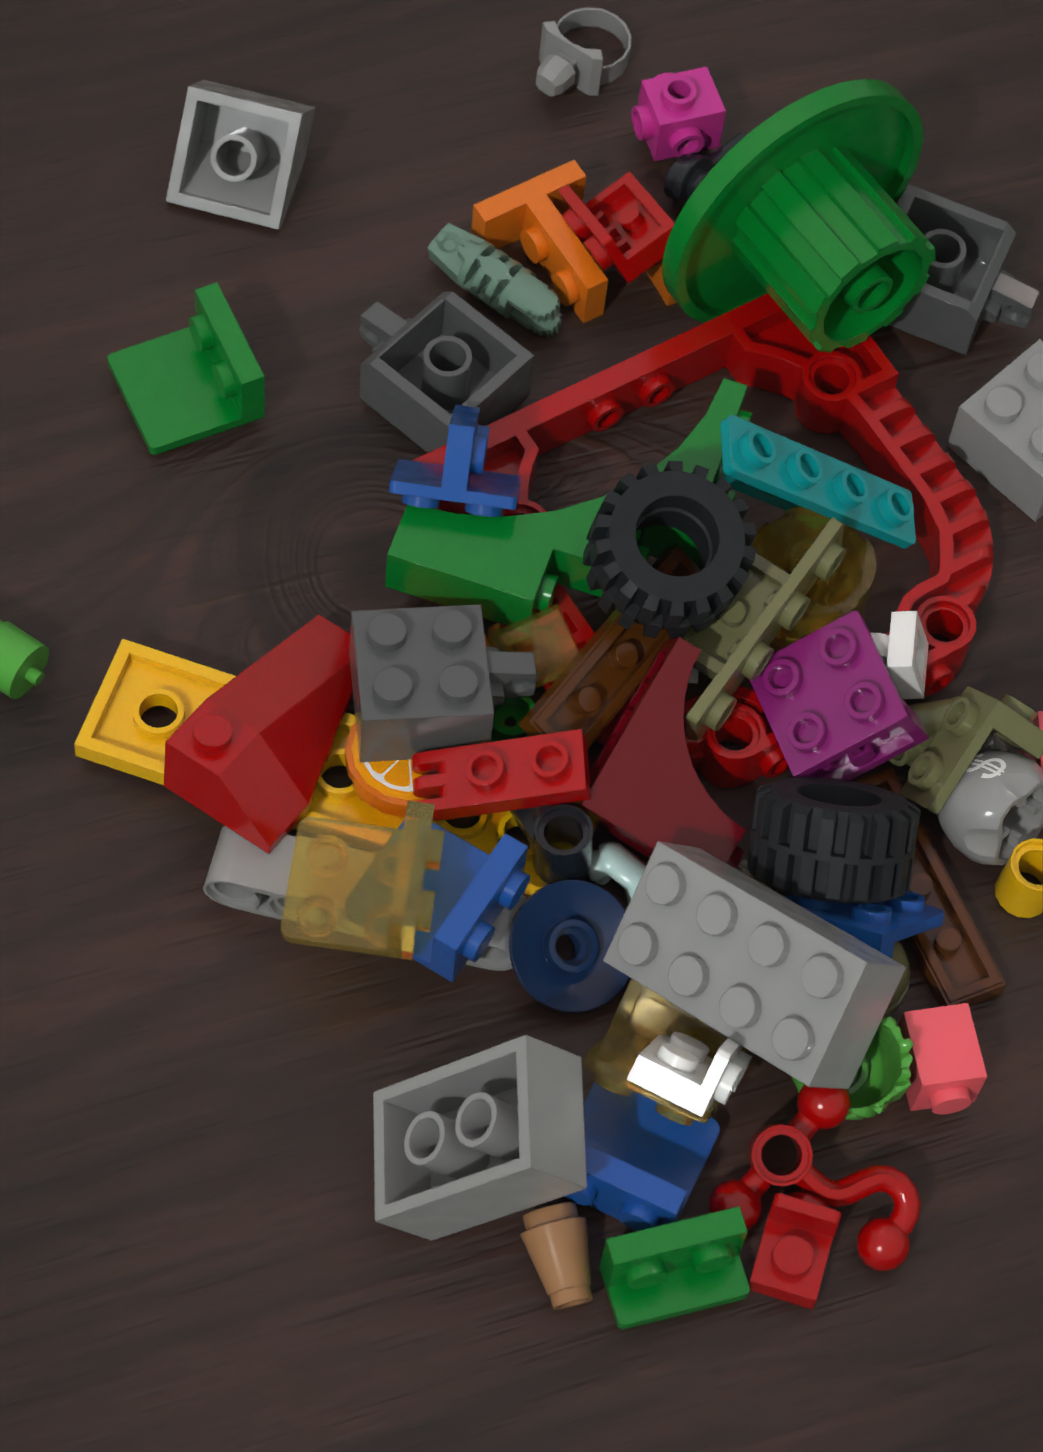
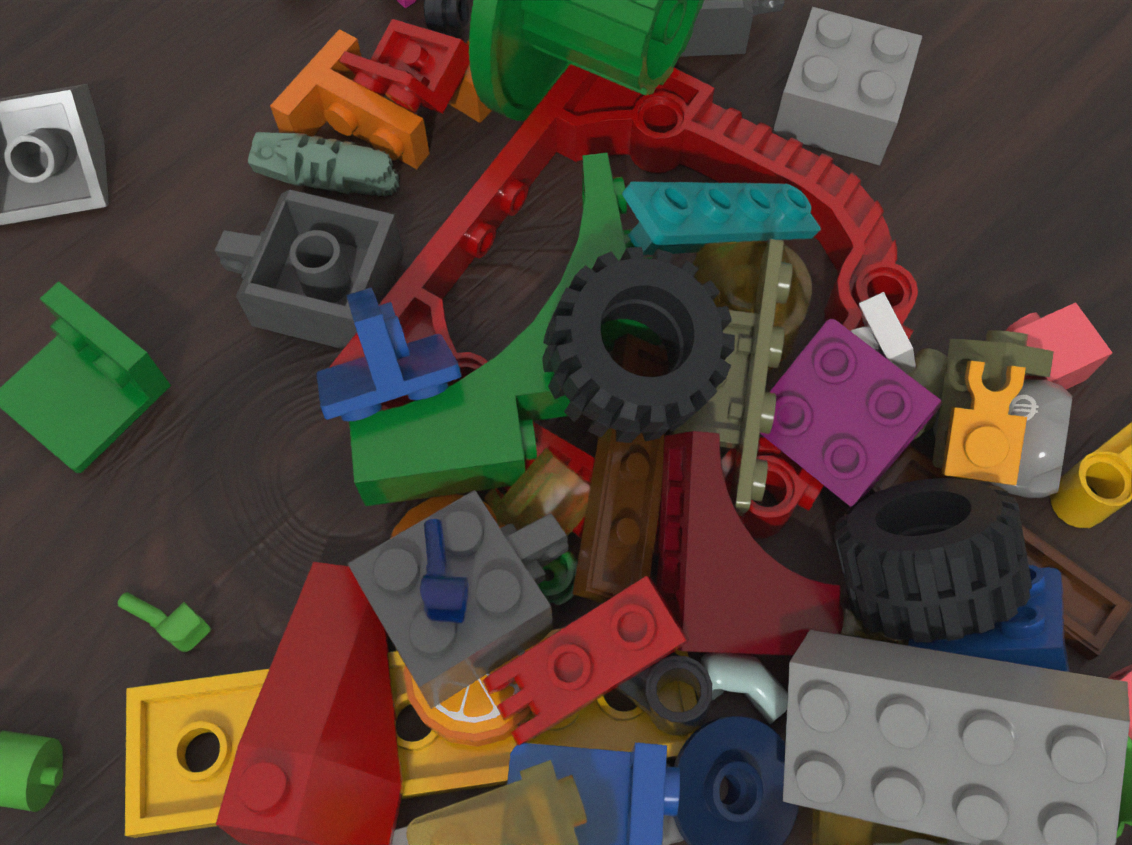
camera: 20 degrees left, 5 degrees up
(181, 617) = (181, 628): none -> bright green hand
(416, 660) = (443, 595): none -> clear blue hand
(938, 770) = (985, 439): none -> light orange plate

